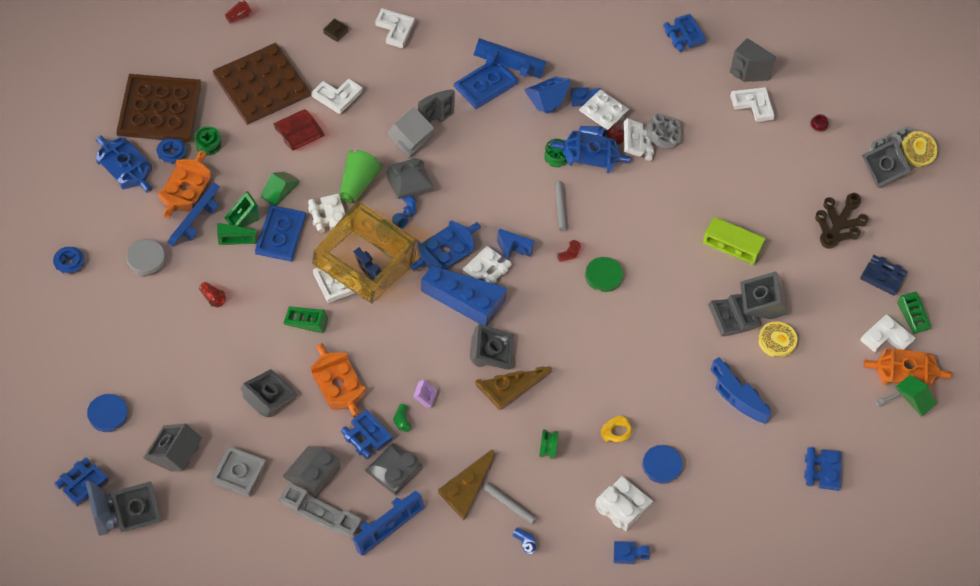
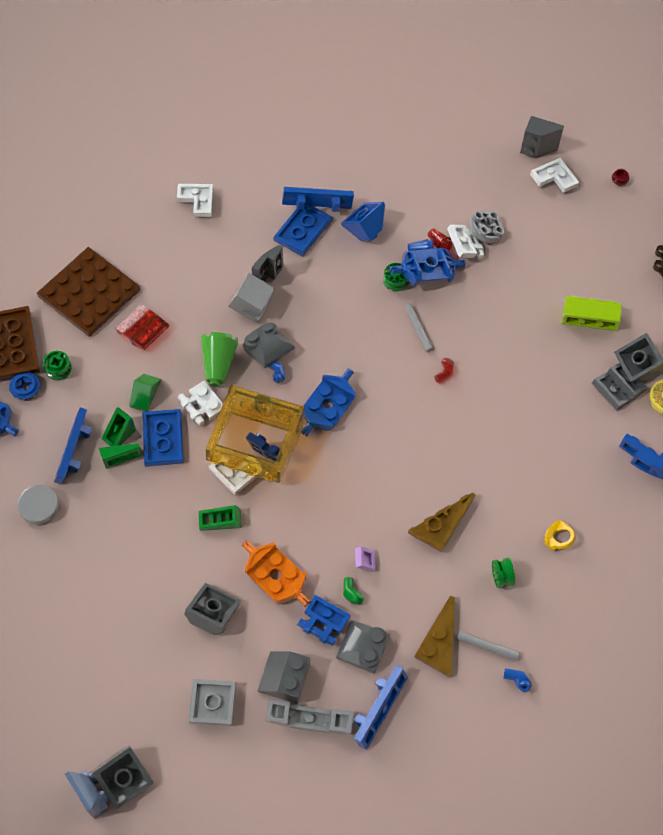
camera: 15 degrees left, 5 degrees up
(77, 489) = (65, 761): blue plate -> none
(107, 412) = (57, 683): blue tile -> none
(173, 447) = (137, 698): dark grey slope -> none
(186, 173) = (47, 405): orange plate -> none
(212, 294) = (119, 523): clear red cone -> none
(239, 11) = (40, 227): clear red cone -> none
(335, 30) = (141, 217): dark brown plate -> none
(338, 98) = (168, 285): white plate -> none
(400, 220) = (273, 389): blue hinge -> none
(464, 294) = (363, 445): blue wedge -> none
(484, 263) = (368, 408): white plate -> none
(491, 347) = (410, 491): dark grey slope -> none
(512, 242) = (386, 378): blue slope -> none
(580, 96) = (398, 215): blue plate -> none
(604, 110) = (424, 222): white hinge -> none
(604, 274) = (485, 383): green tile -> none
(623, 503) = (594, 609): white plate -> none
(627, 553) = (617, 659): blue plate -> none
(662, 464) = (614, 556): blue tile -> none
(688, 29) = (469, 123): blue plate -> none

